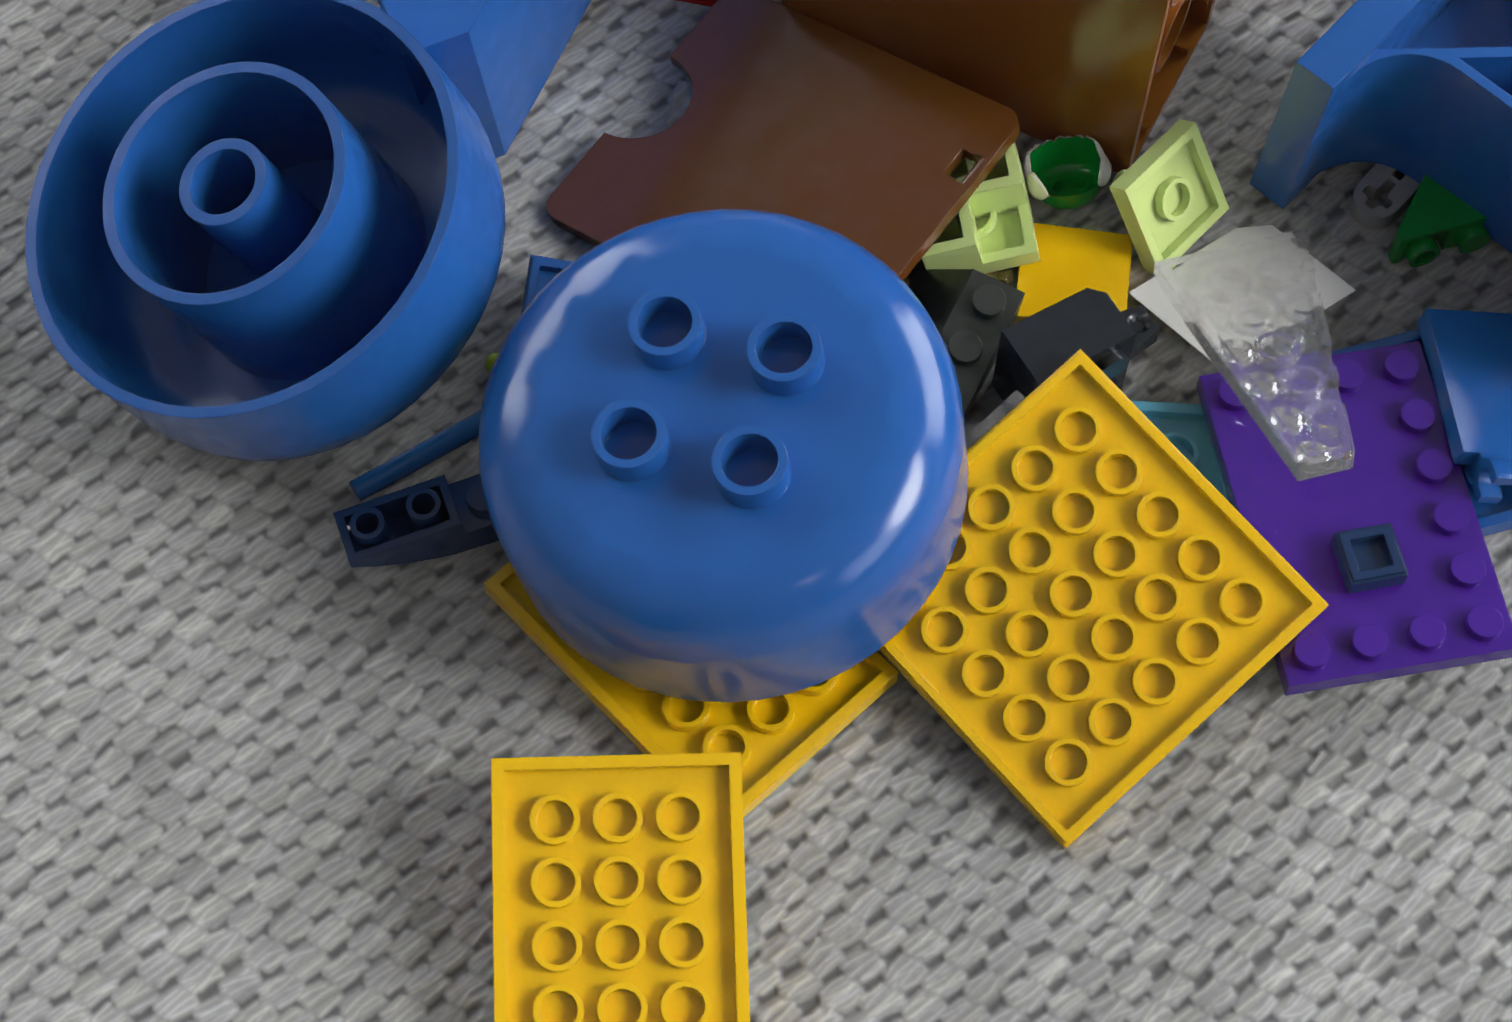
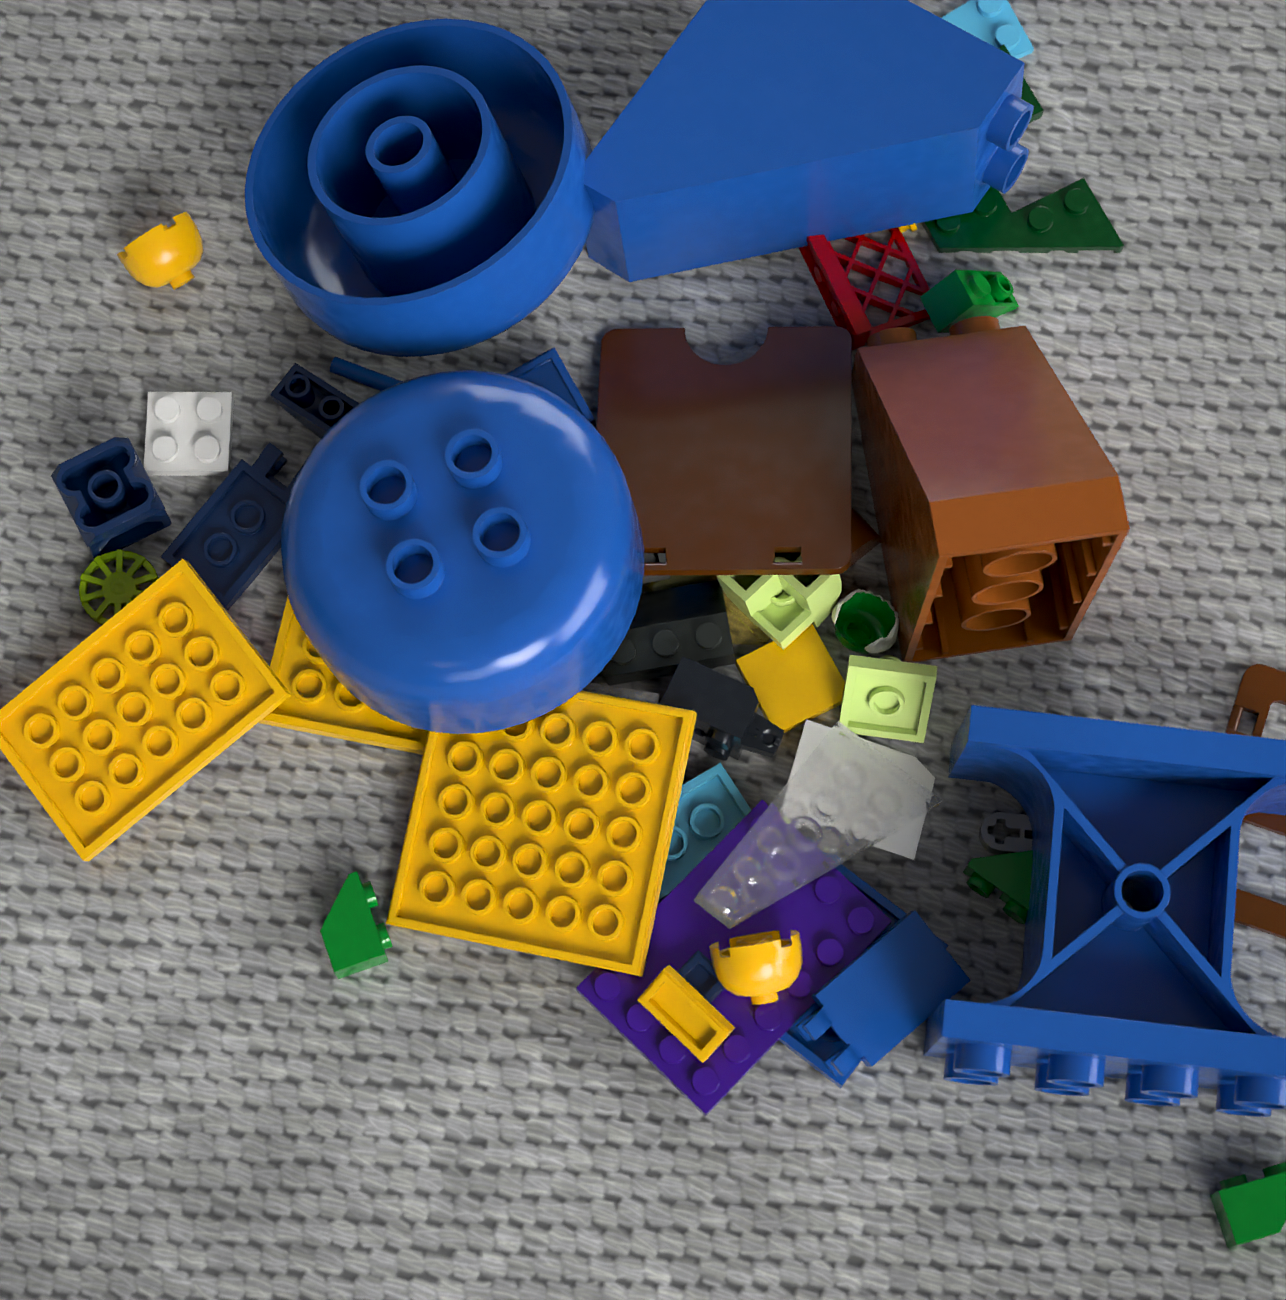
camera: 55 degrees right, 10 degrees up
(81, 569) = (165, 253): none -> yellow cylinder
(312, 690) = (188, 433): none -> white plate
(331, 809) = (110, 496): none -> dark blue piece
(439, 885) = (117, 587): none -> lime wheel
(469, 699) = (236, 527): none -> dark blue tile
(1053, 883) = (351, 932): none -> green slope
(1398, 477) = (758, 964): none -> yellow cylinder
(1401, 587) = (686, 1013): none -> yellow tile

